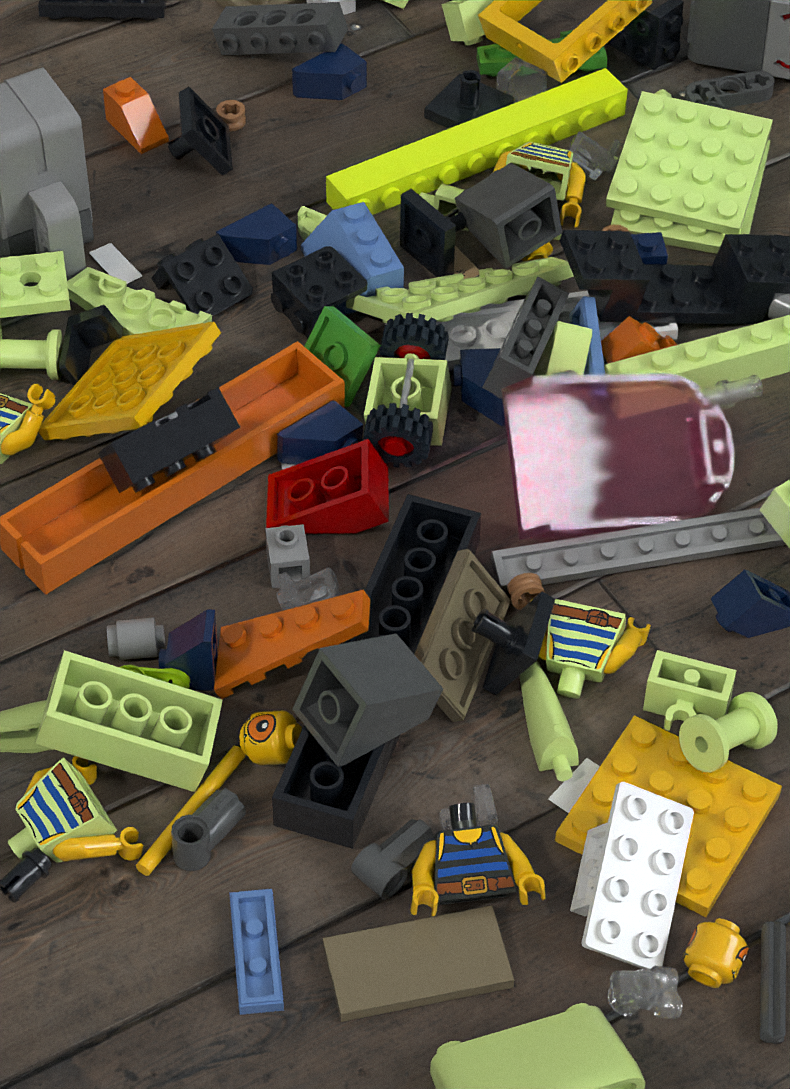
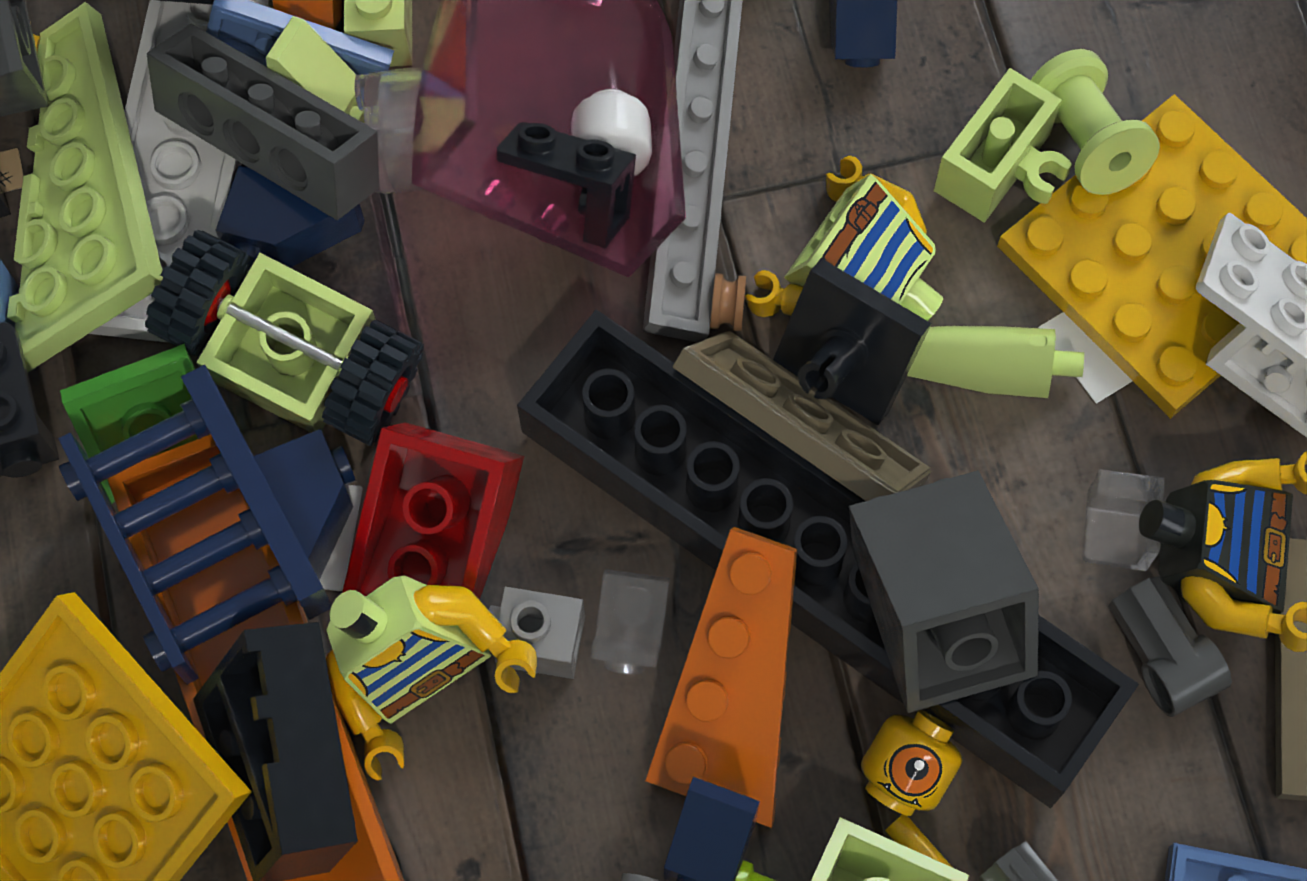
camera: 70 degrees left, 20 degrees up
(247, 488) = (407, 647): none -> torso
(290, 401) = (259, 525): none -> dark blue fence
(561, 481) = (591, 164): none -> black bracket
(597, 496) = (618, 120): none -> white head

